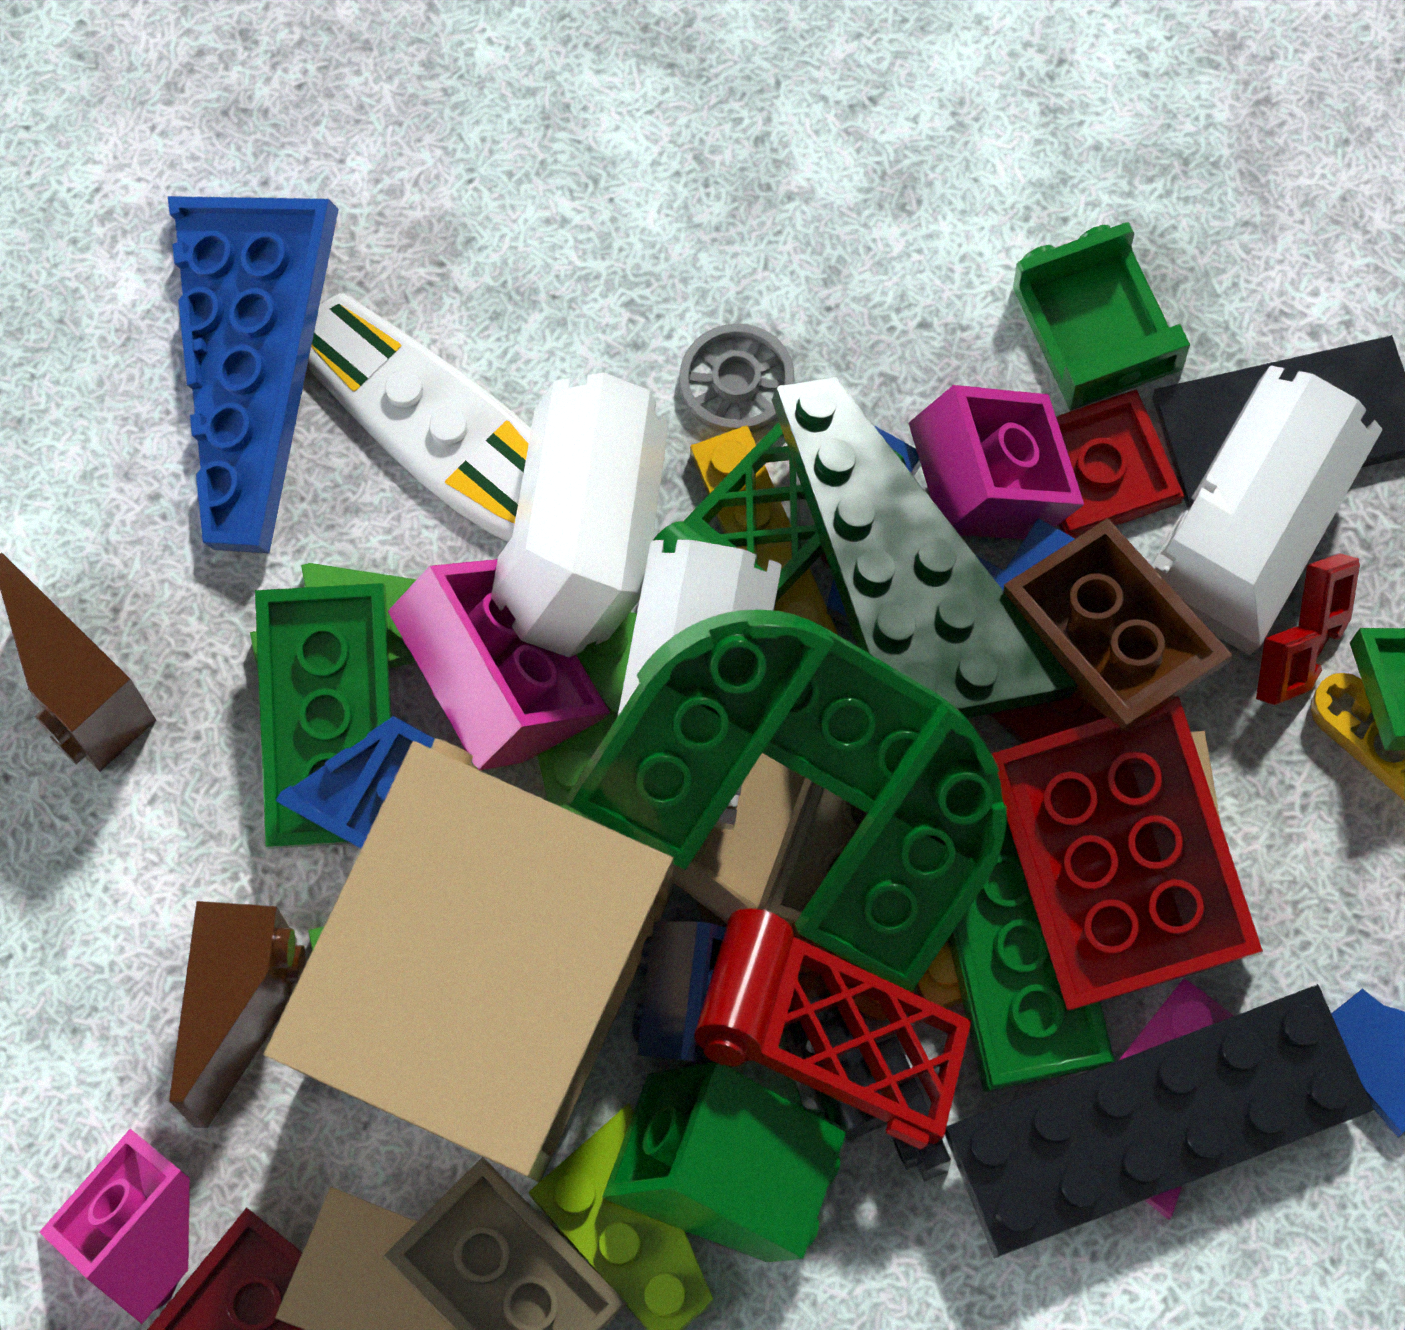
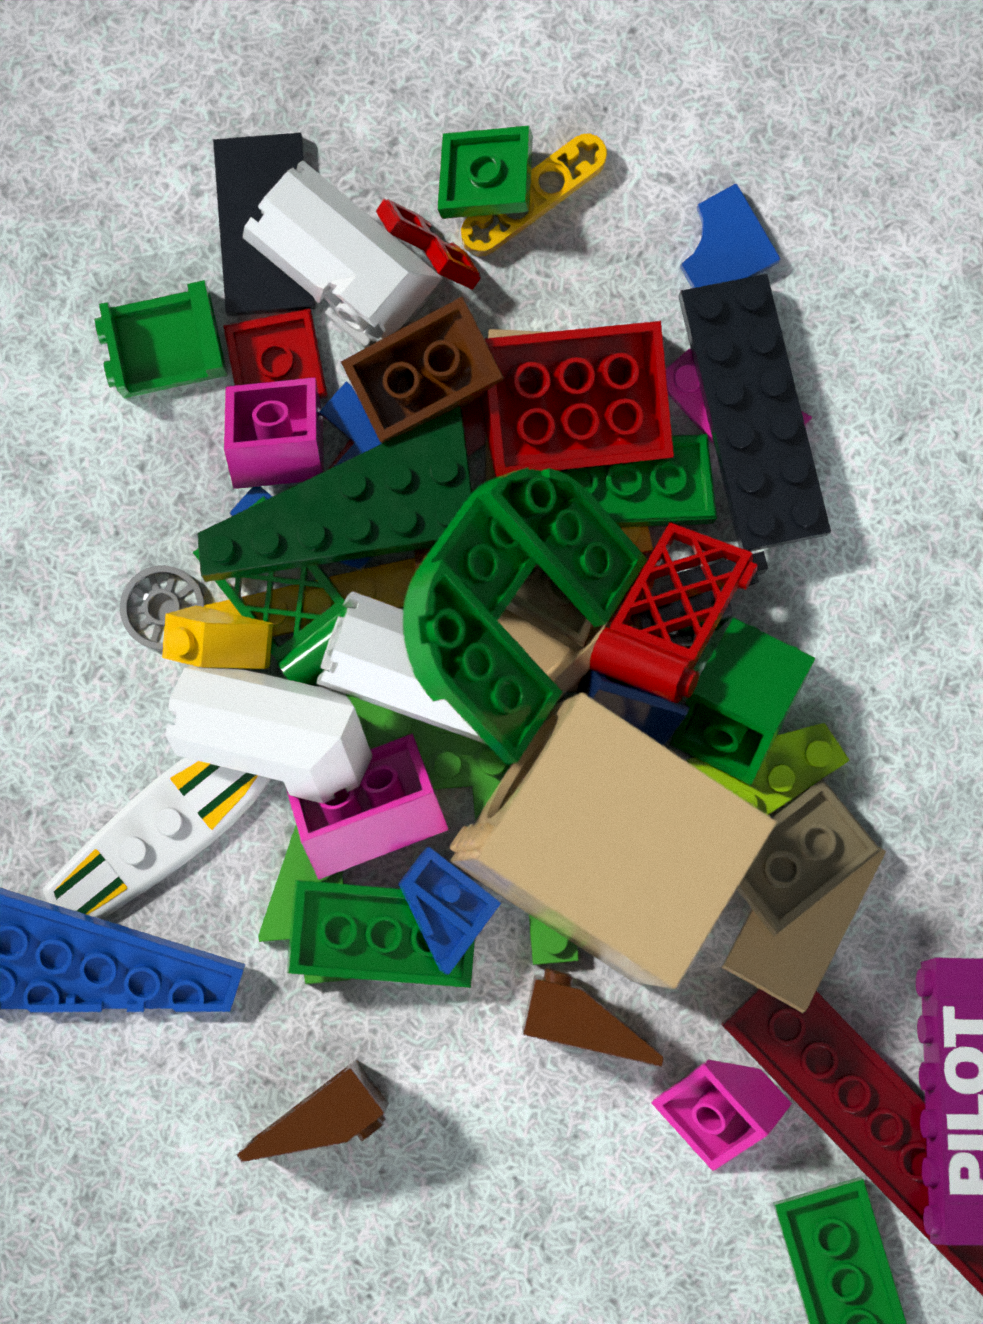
camera: 85 degrees left, 15 degrees up
(698, 433) = (216, 639): none -> yellow slope

